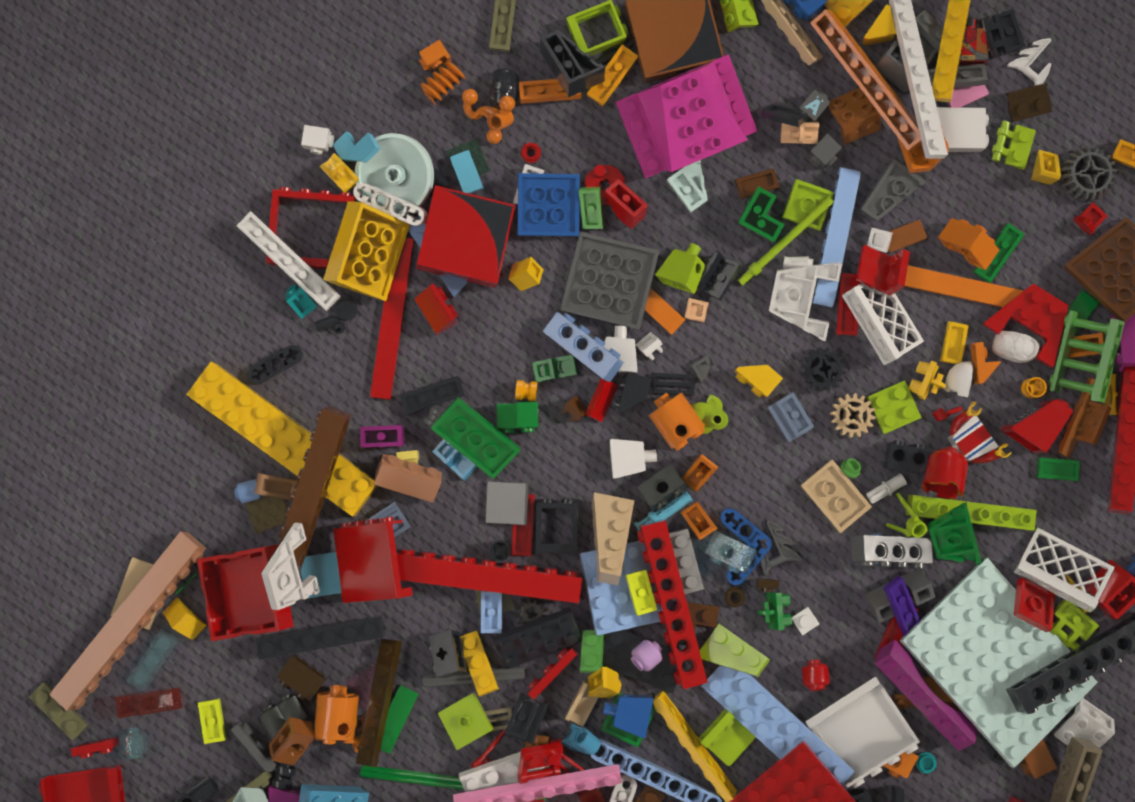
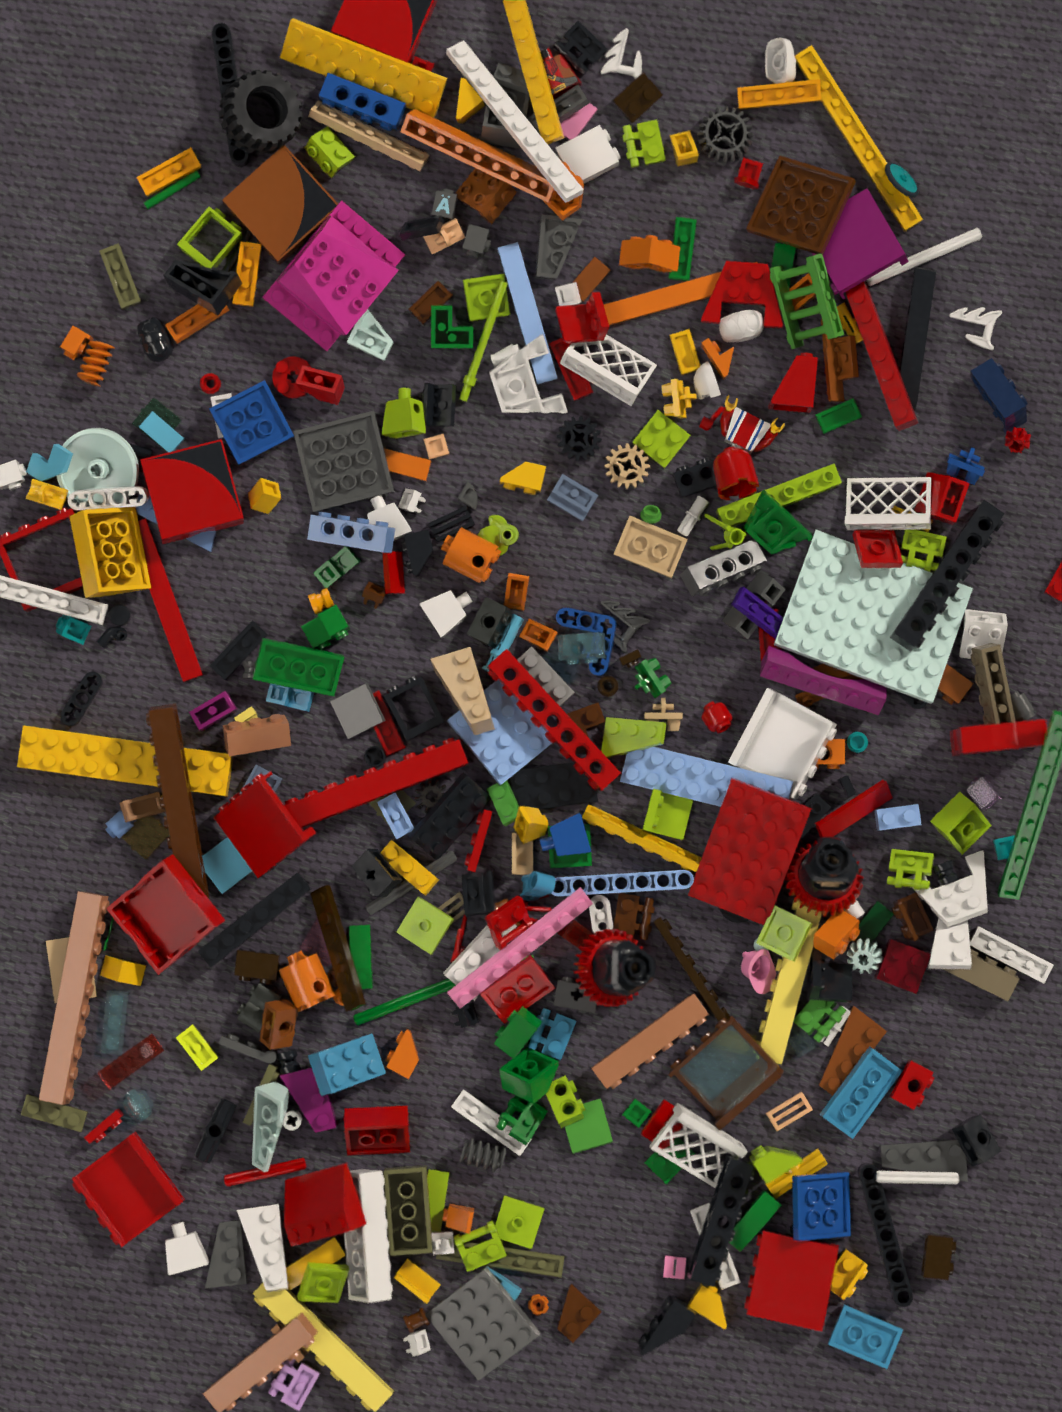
camera: 20 degrees left, 0 degrees up
(282, 574) = (192, 876): white wing -> none
(436, 310) = (201, 571): red slope -> none
(496, 118) = (163, 370): orange piece -> none
(591, 208) = (291, 404): bright green plate -> none
(641, 592) = (519, 725): neon yellow plate -> none
(646, 655) = (554, 778): lavender head -> none
(776, 657) = (673, 719): none -> tan hips
(805, 620) = (682, 673): white plate -> none
(1037, 388) = (776, 351): light orange wheel -> none

